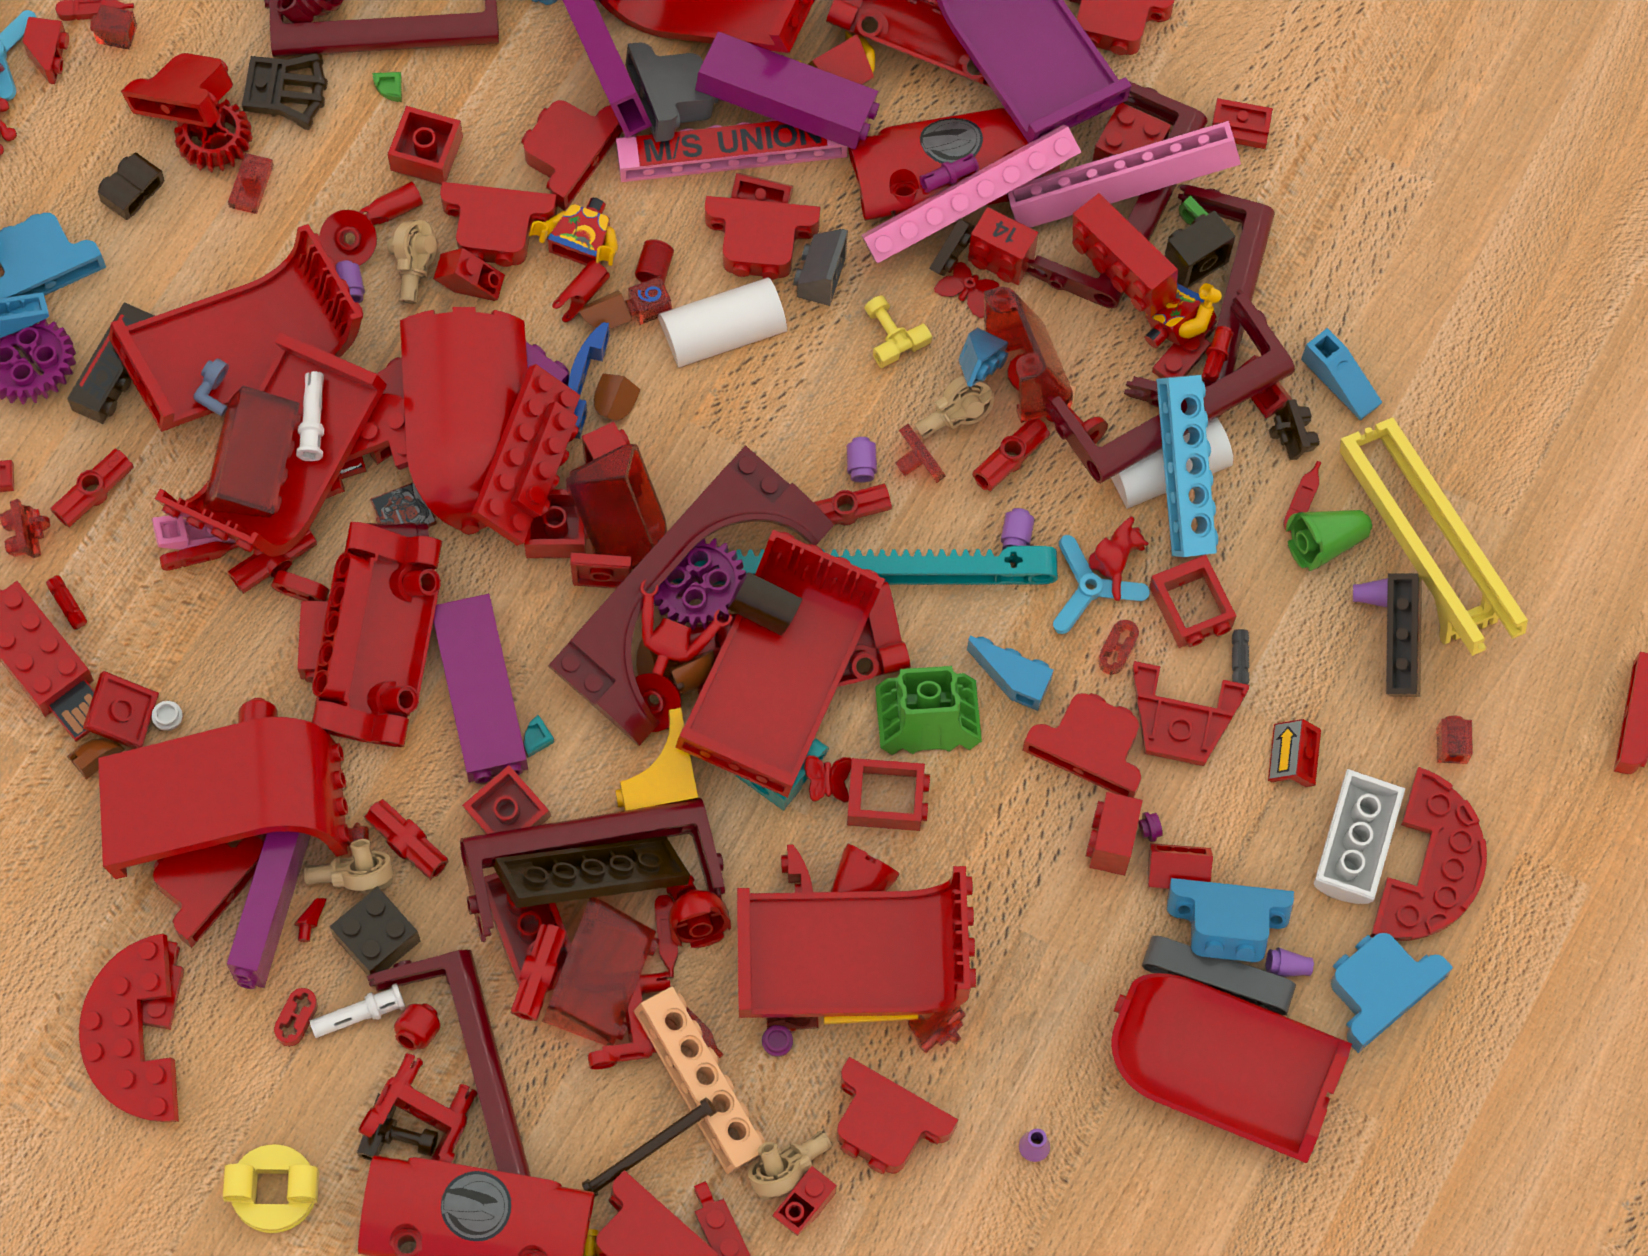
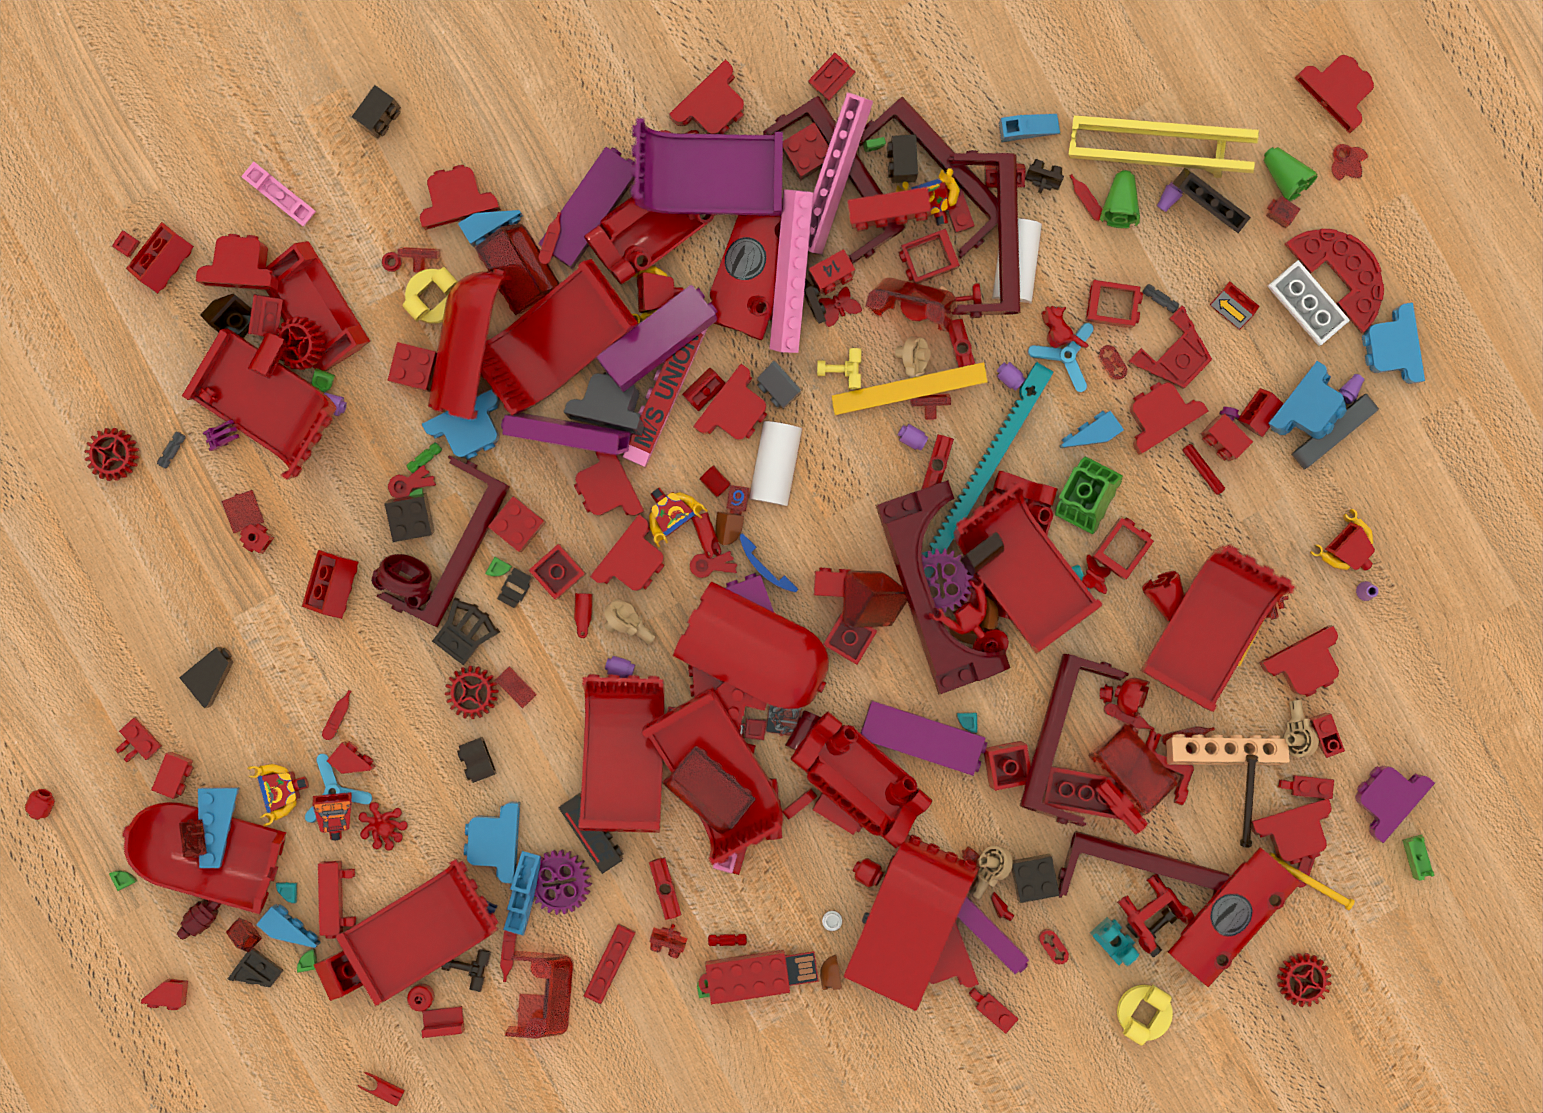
camera: 55 degrees left, 20 degrees up
(113, 1032) = (1006, 1051): red plate -> none
(114, 27) = (360, 711): clear red brick -> none
(120, 710) = (816, 946): red tile -> none
(182, 90) = (436, 695): red brick -> none
(213, 375) = (641, 783): sand blue plate -> none
(311, 429) = (714, 747): white pin -> none
(334, 234) = (596, 657): red dish -> none
(356, 1065) = (1121, 952): none -> teal brick
(362, 116) = (509, 595): none -> dark brown piece
(366, 484) = (755, 729): none -> red tile
(371, 1007) = (1074, 903): white pin -> none
(406, 839) = (988, 829): red piece -> none
(417, 1026) = (1101, 884): red head -> none
(456, 72) = (517, 524): none -> red brick
(468, 275) = (658, 594): red slope -> none
(528, 456) = (808, 632): red plate -> none
(538, 310) = (703, 566): none -> red piece
(591, 871) = (1081, 744): dark brown plate -> none
(599, 570) = (897, 629): red tile -> none
(615, 396) = (787, 556): dark orange brick -> none
(666, 780) = (1041, 668): yellow arch -> none
(777, 1040) = (1227, 695): magenta plate -> none
(796, 869) = (1137, 625): red slope -> none
(920, 416) = (909, 388): none -> yellow sticker
(949, 173) = (769, 275): magenta pin -> none
(981, 356) = (895, 332): dark azure slope -> none
(1057, 839) = (1203, 469): none -> red axle
(1076, 1084) = (1351, 547): none -> red torso
(1093, 319) = (948, 251): none -> red window
(1175, 456) = (1040, 257): medium azure brick -> none
(1217, 353) = (978, 192): red axle -> none
(1227, 1061) = (1390, 458): red panel -> none
(1506, 719) = (1289, 173): none -> bright green cone
(1574, 791) = (1350, 164): none -> clear red plate

